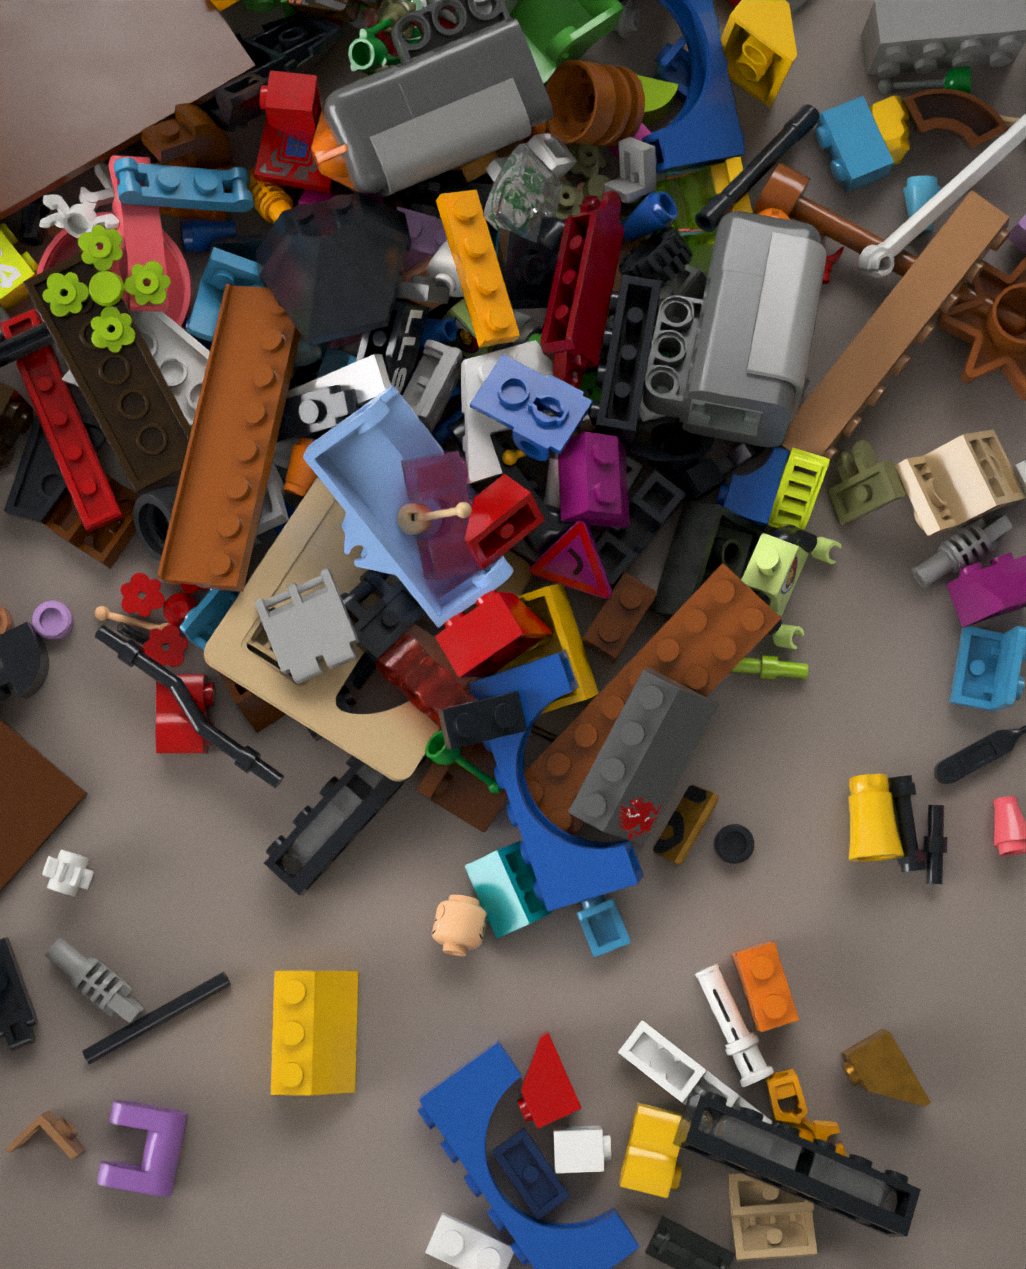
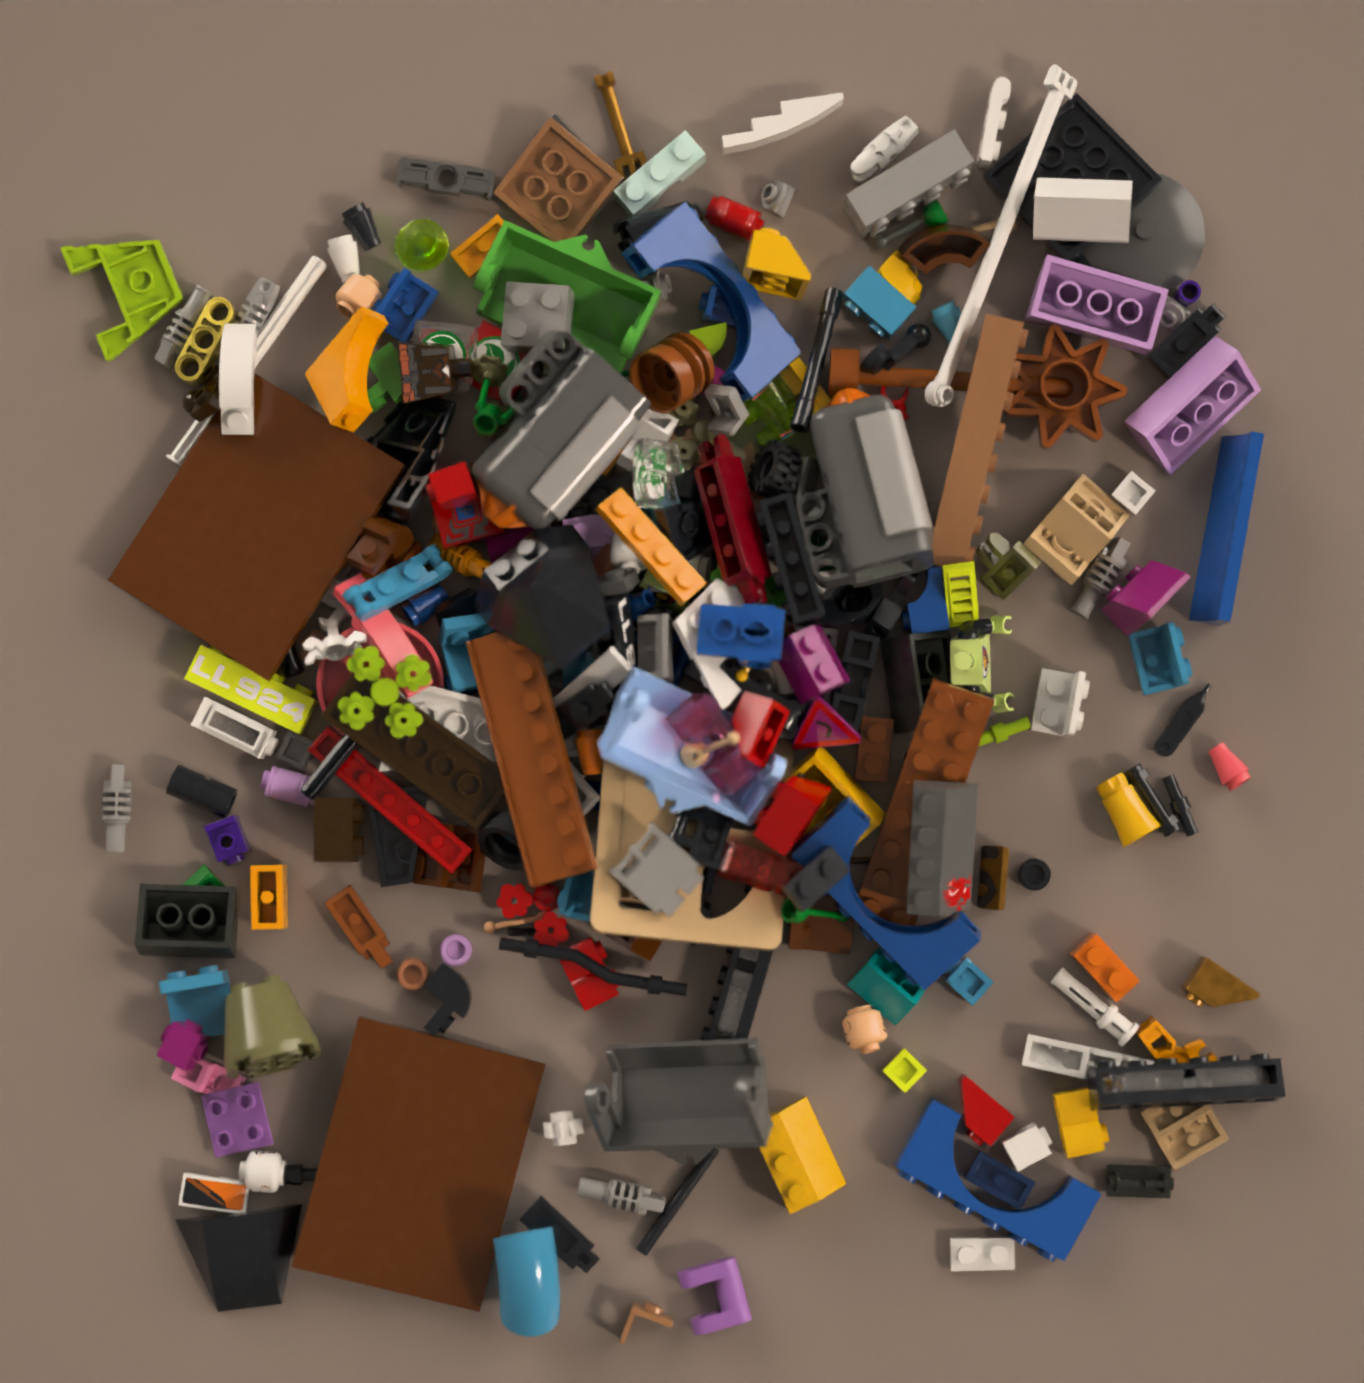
camera: 25 degrees left, 5 degrees up
(213, 901) = (682, 1098): none -> dark grey piece
(482, 993) = (904, 1070): none -> neon yellow plate
(651, 215) = (756, 435): blue cone -> none
(828, 194) = (917, 337): none -> black piece
(849, 664) = (1059, 702): none -> white bracket

